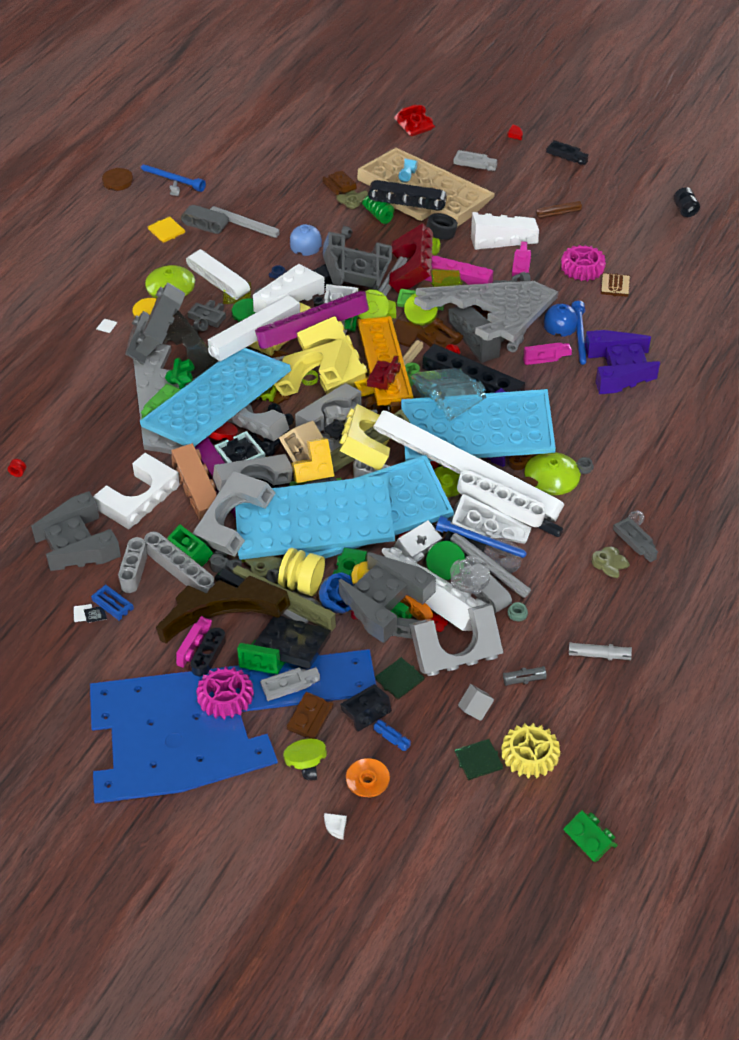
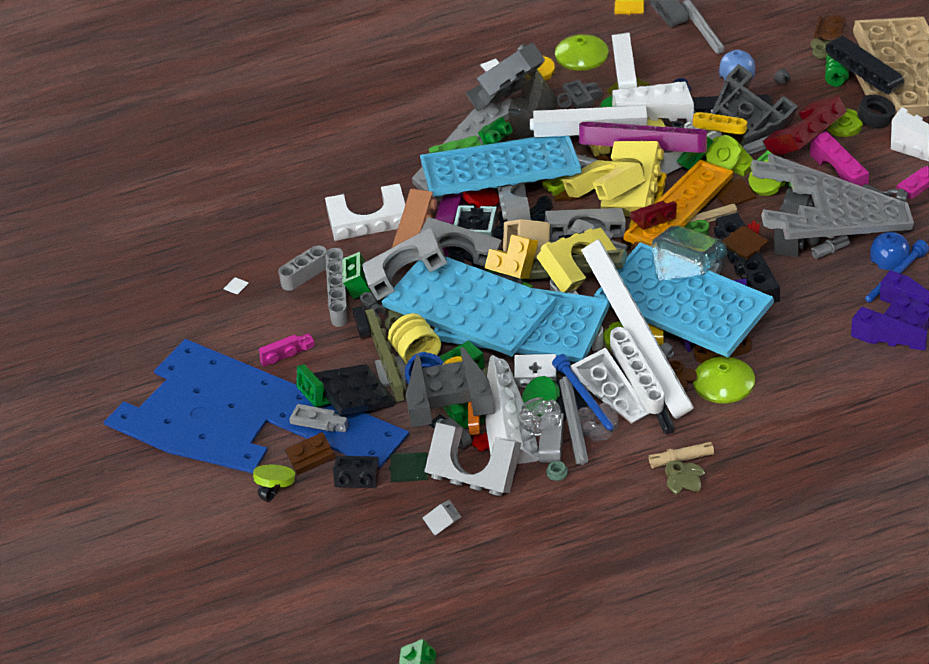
camera: 45 degrees right, 5 degrees down
(16, 467) = (299, 147): red bush -> none
(69, 537) = (282, 220): dark grey wedge -> none
(95, 614) = (243, 291): black sticker -> none
(96, 597) = (264, 298): blue tile -> none
(208, 659) = (276, 368): black beam -> none
(222, 598) = (335, 328): dark brown arch -> none
(224, 685) = (264, 398): dark pink gear -> none
(335, 824) = (245, 540): white tile -> none
(354, 283) = (719, 123): none -> yellow beam
(366, 770) = (299, 520): orange dish -> none
(392, 735) = (354, 503): blue axle -> none
(409, 167) = (905, 39): medium azure leg -> none
(431, 335) = (755, 204): reddish brown plate -> none
(445, 278) = (813, 158): clear neon green piece -> none
(468, 362) = (745, 242): none -> reddish brown piece
(478, 759) = (400, 561): clear green piece -> none
(535, 745) = (443, 583): light yellow gear -> none
(538, 674) = (516, 525): dark grey pin -> none
(545, 353) = (838, 273): dark pink hinge -> none
(585, 465) = (757, 387): dark grey plate -> none
(587, 550) = (682, 454): none -> tan pin
(610, 652) = (593, 544): light grey pin -> none
(634, 515) = (749, 455): clear hinge -> none
(636, 538) = (727, 470): dark grey hinge -> none

